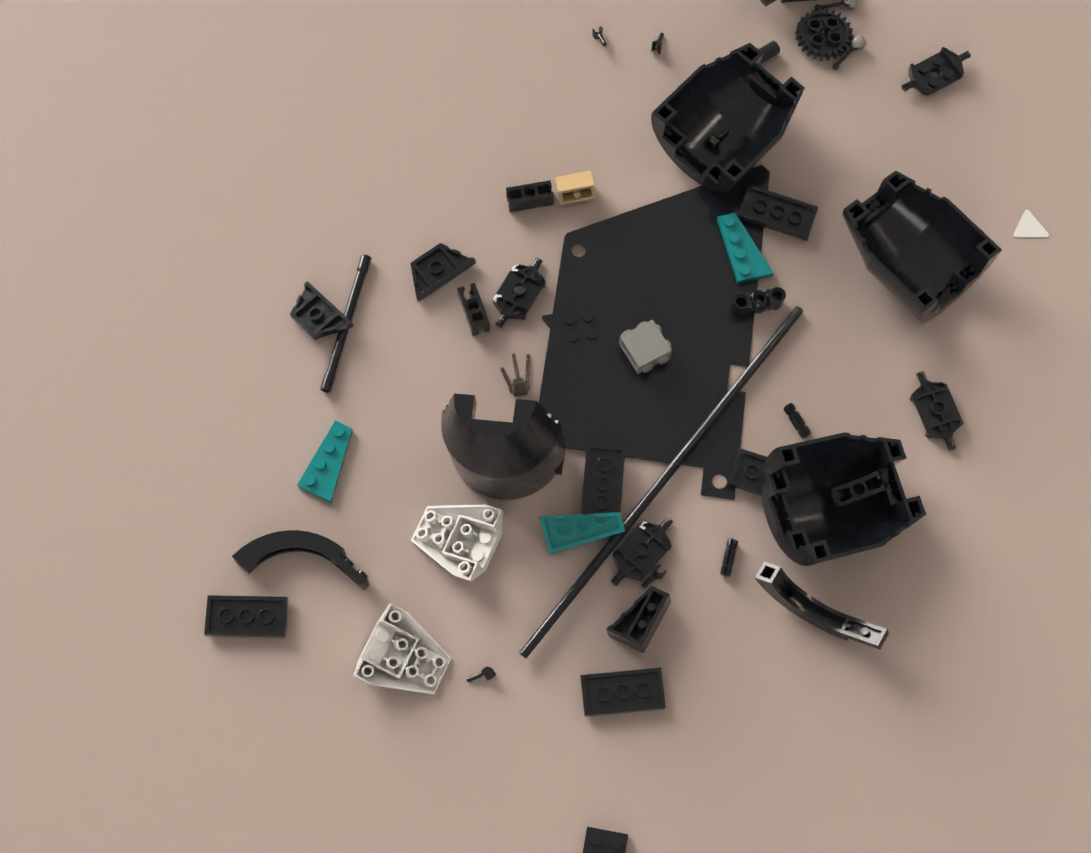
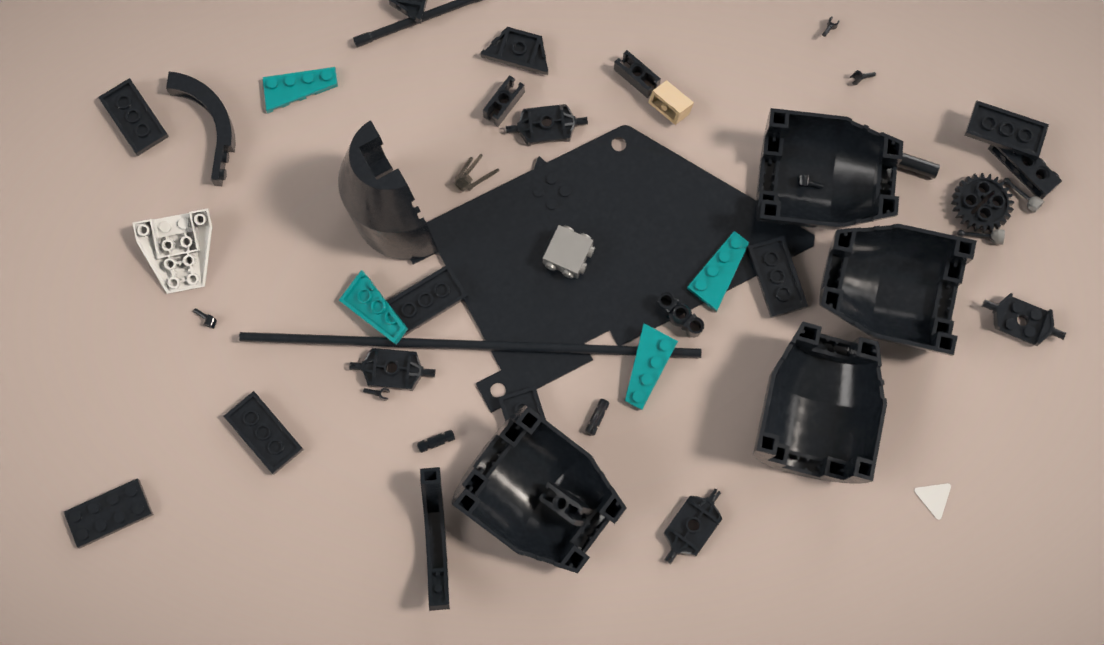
camera: 55 degrees right, 5 degrees up
(460, 537) = (302, 225): white wedge -> none
(641, 620) = (330, 407): black wedge -> none
(781, 348) = (651, 357): none -> teal wing
(852, 131) = (897, 283): none -> black windscreen

